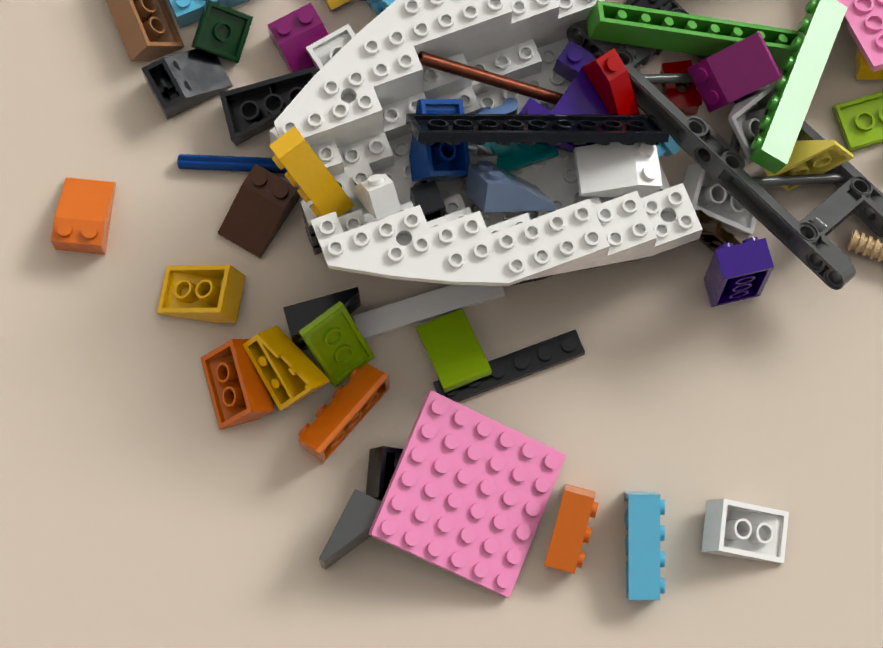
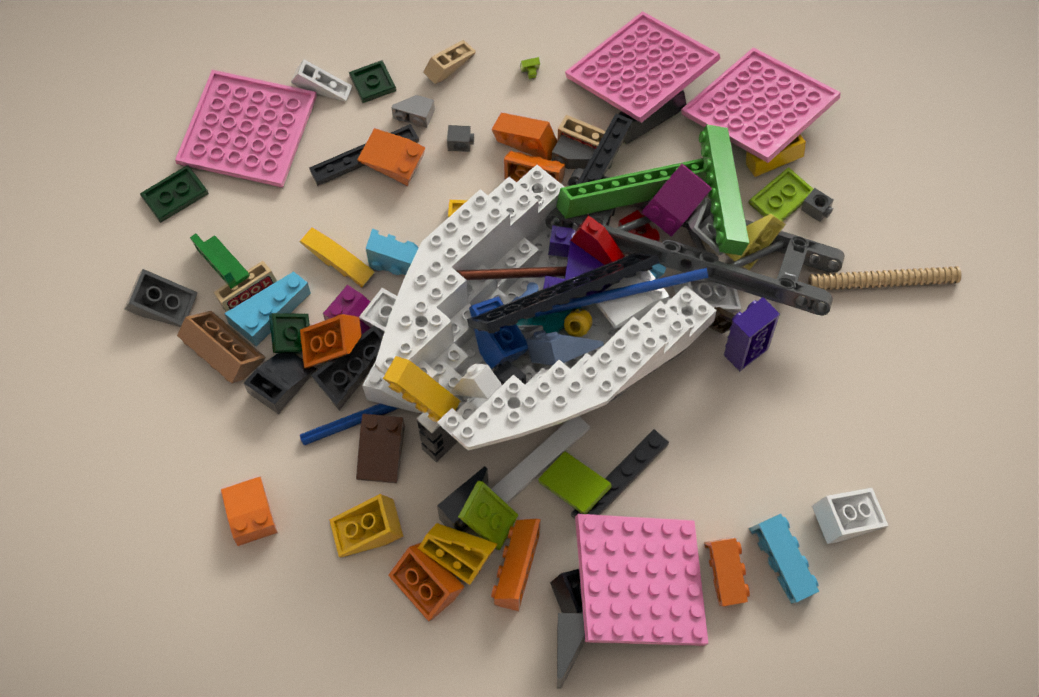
camera: 25 degrees left, 10 degrees down
(259, 61) = (329, 339): none -> orange slope
(543, 169) = (578, 322): none -> yellow head
(628, 161) = (628, 291): none -> blue piece

